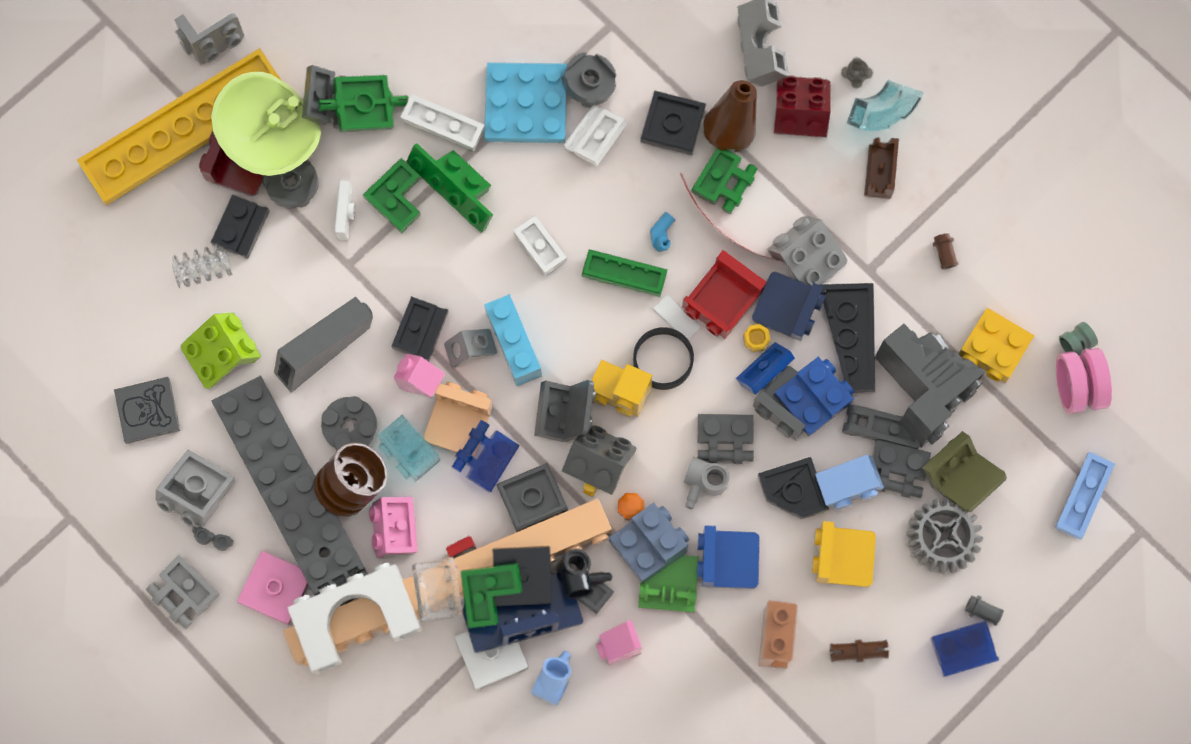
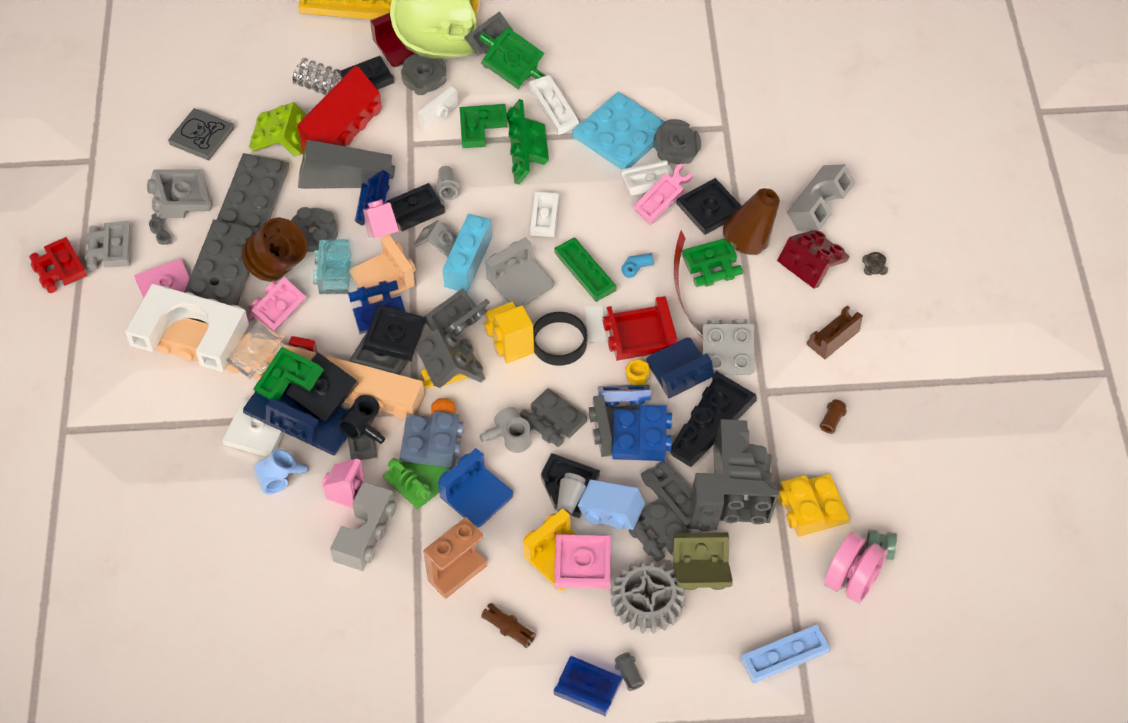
camera: 40 degrees right, 20 degrees down
(158, 640) = (65, 262): none -> red plate
(269, 293) = (342, 111): none -> red slope
(376, 352) = (373, 191): none -> clear blue plate
(426, 283) = (447, 185): none -> light grey cone
(529, 471) = (394, 333): none -> black plate
(577, 327) = (517, 274): none -> light grey bracket
(627, 147) = (661, 195): none -> bright pink plate
(662, 641) = (357, 545): none -> light grey arch
(811, 500) = (570, 492): none -> light grey cone
(871, 550) = (582, 561): none -> bright pink plate
(884, 108) = (872, 294): clear light blue brick -> none

